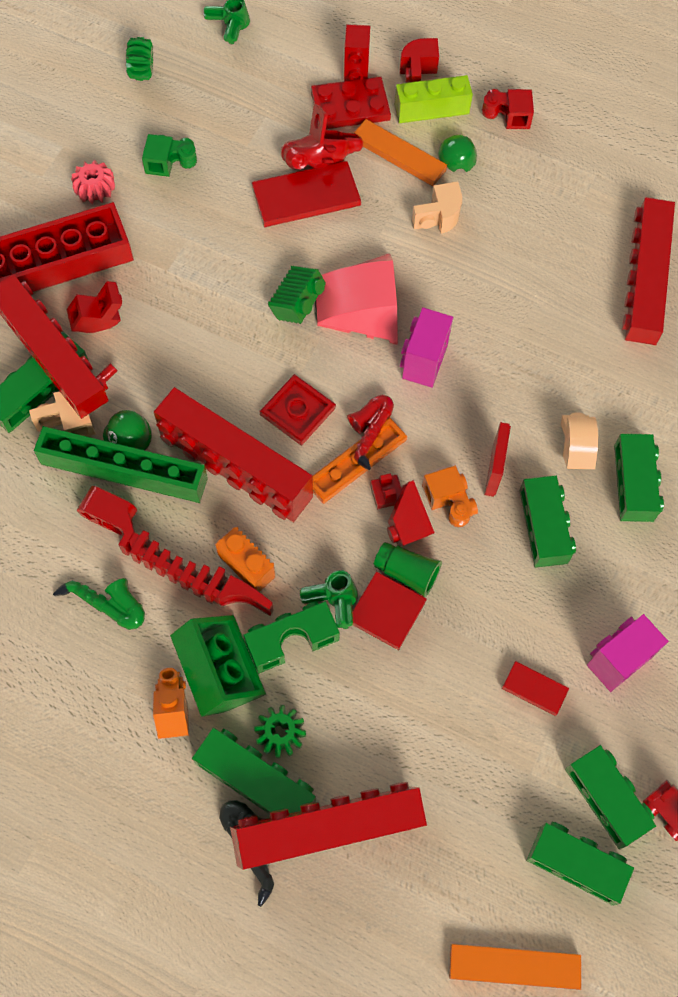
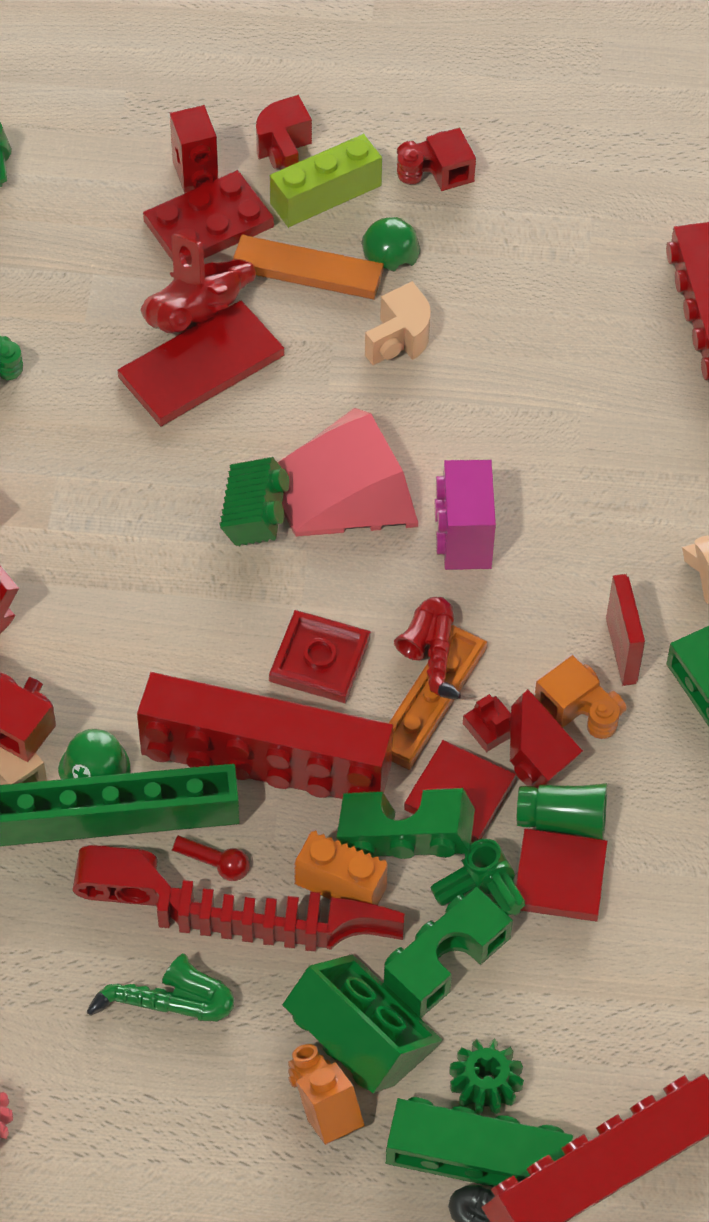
camera: 20 degrees left, 10 degrees down
(183, 527) = (230, 864): none -> red bar
(317, 552) = (437, 828): none -> green arch
(347, 531) = (457, 768): none -> red tile

